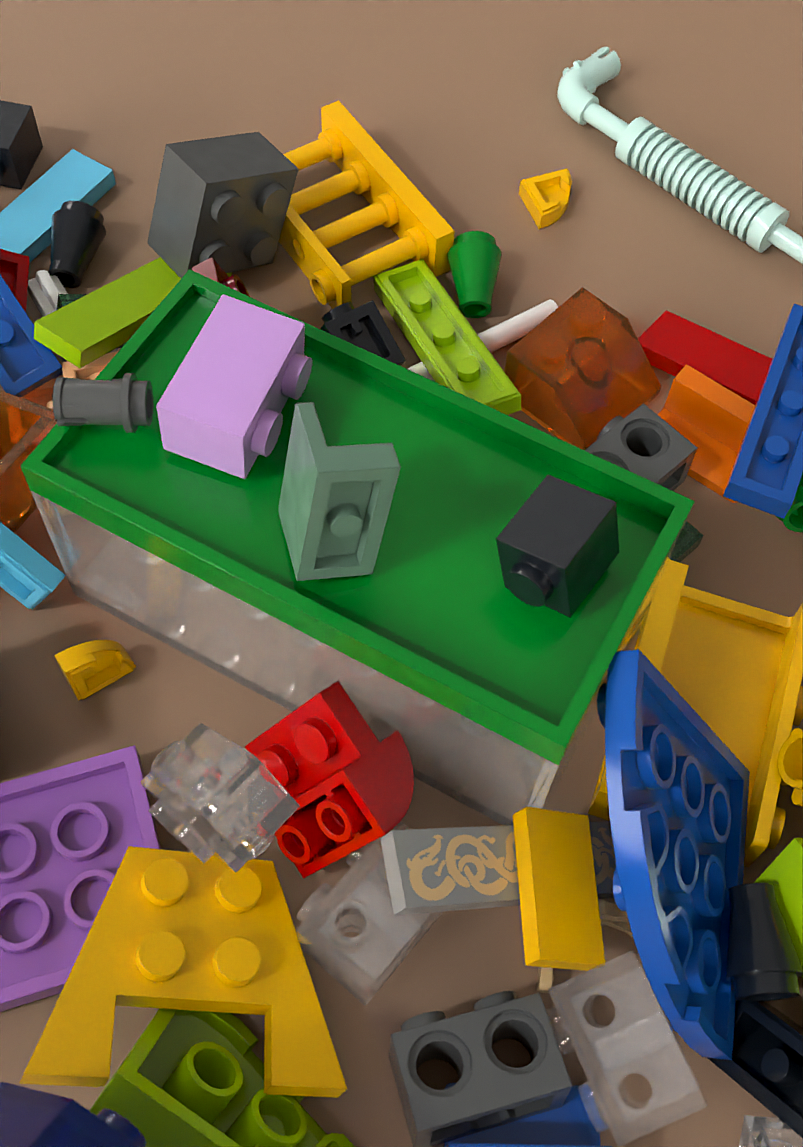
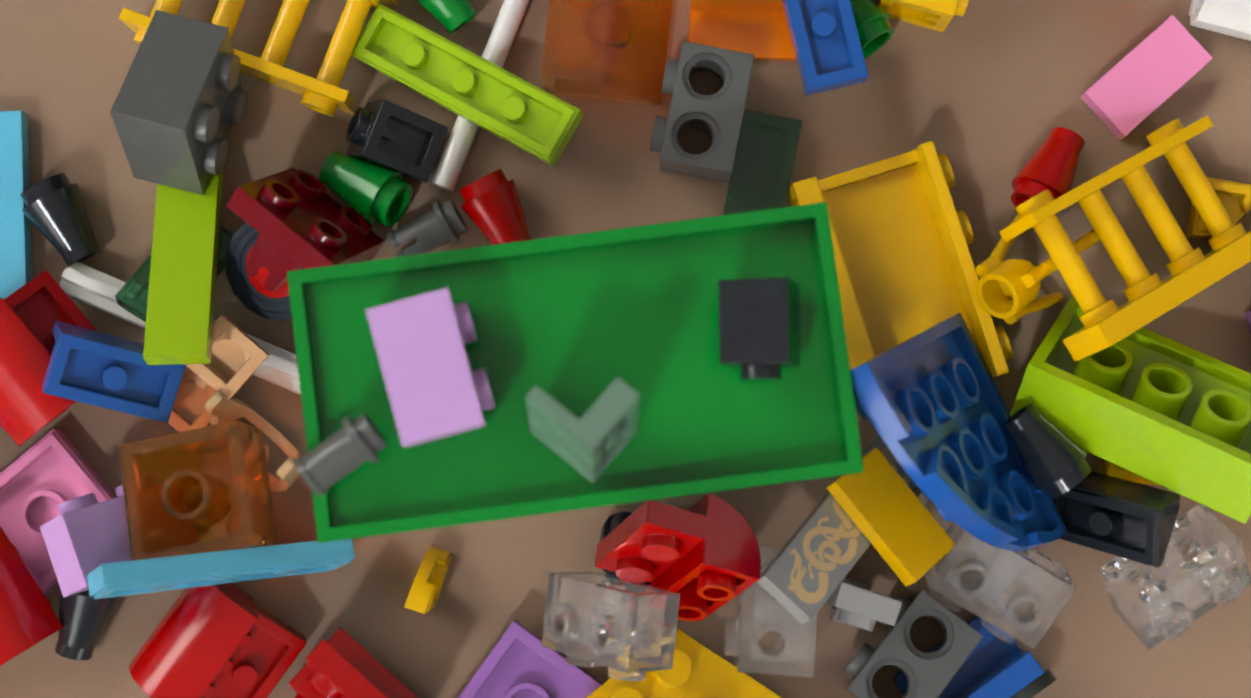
camera: 30 degrees left, 25 degrees up
(464, 956) = (862, 607): none -> light grey plate

